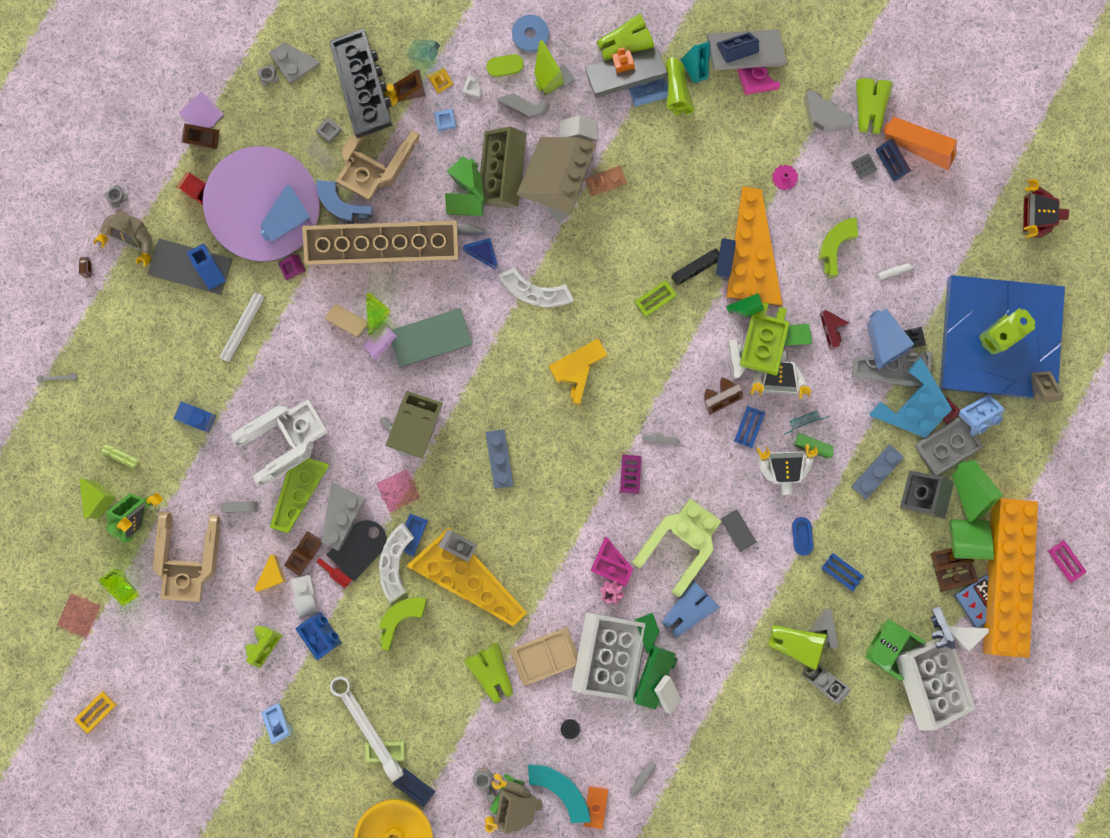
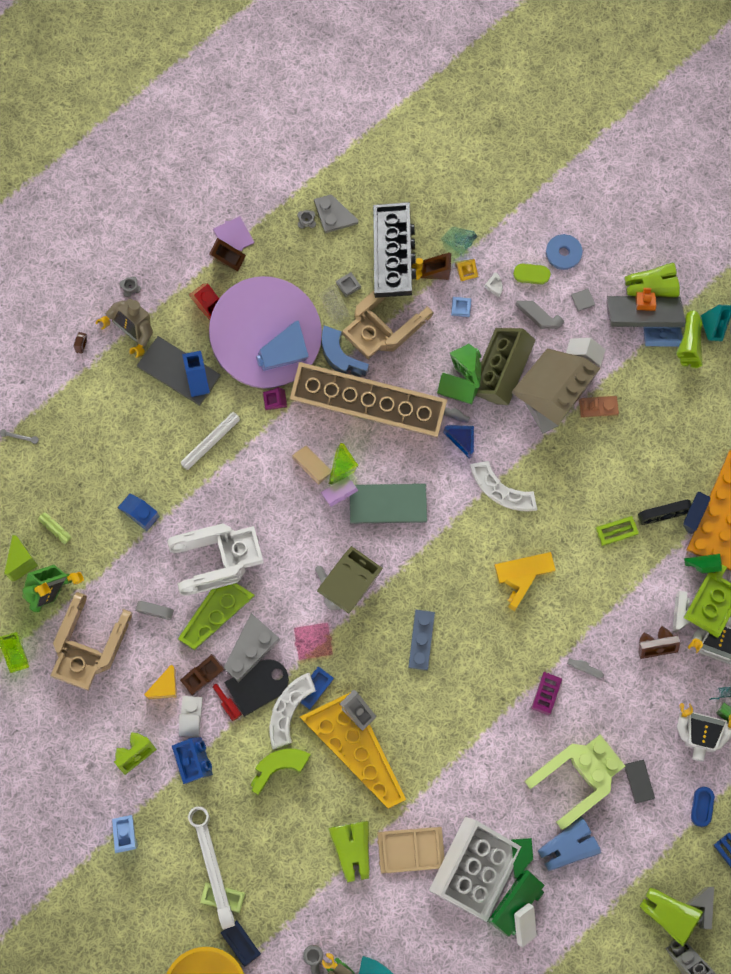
camera: 15 degrees right, 10 degrees down
(546, 71) = (571, 289): lime slope -> none
(570, 729) = (415, 932): black tile -> none
(611, 564) = (503, 776): dark pink wing -> none
(611, 592) = (494, 799): bright pink gear -> none
(744, 442) = (686, 669): blue tile -> none

